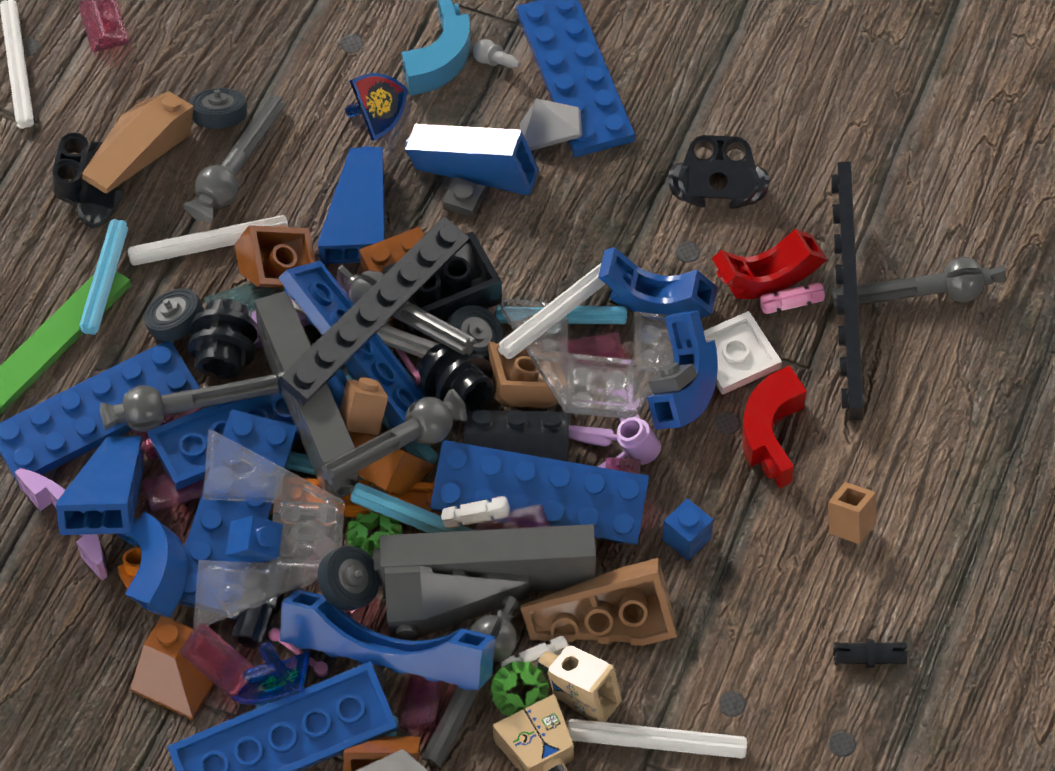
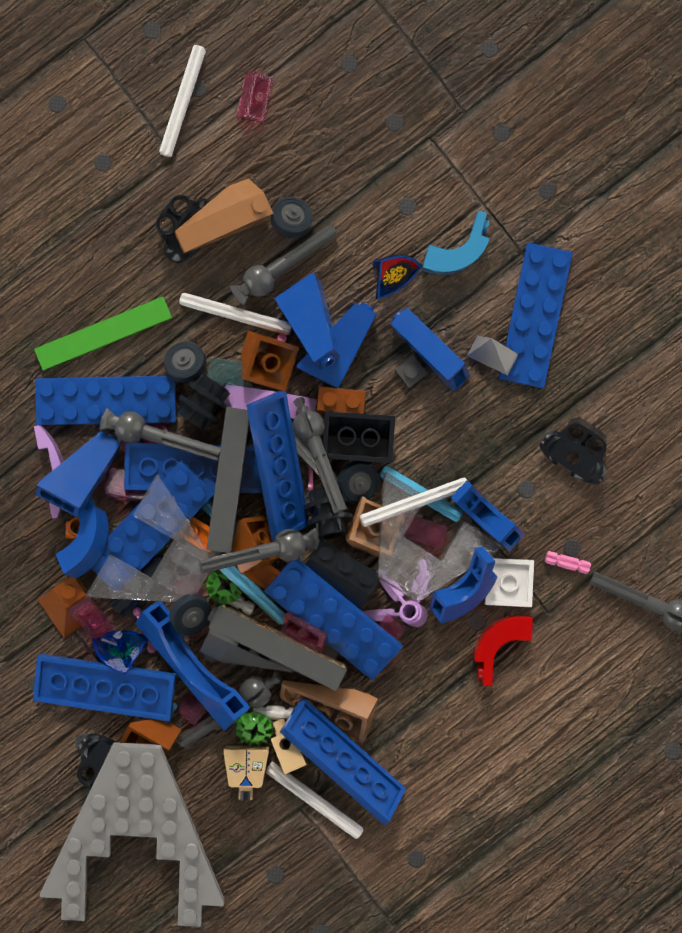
camera: 30 degrees right, 30 degrees up
(103, 277) = (155, 309): medium azure axle -> none
(254, 539) = (146, 563): blue brick -> none
(304, 189) = (310, 319): none -> blue slope
(363, 406) = (254, 516): medium nougat brick -> none
(372, 311) = (296, 454): black plate -> none
(475, 512) = (286, 614): white axle -> none
(488, 52) = (488, 266): light grey bar -> none
(662, 650) = (343, 760): none -> blue plate
(672, 377) = (455, 591): dark grey plate -> none
(687, 529) = (407, 686): blue brick -> none
(772, 270) = (565, 538): red arch -> none
(848, 302) = (605, 577): black plate -> none
(852, 512) = (508, 733): medium nougat brick -> none
(870, 653) = (464, 818): black pin -> none

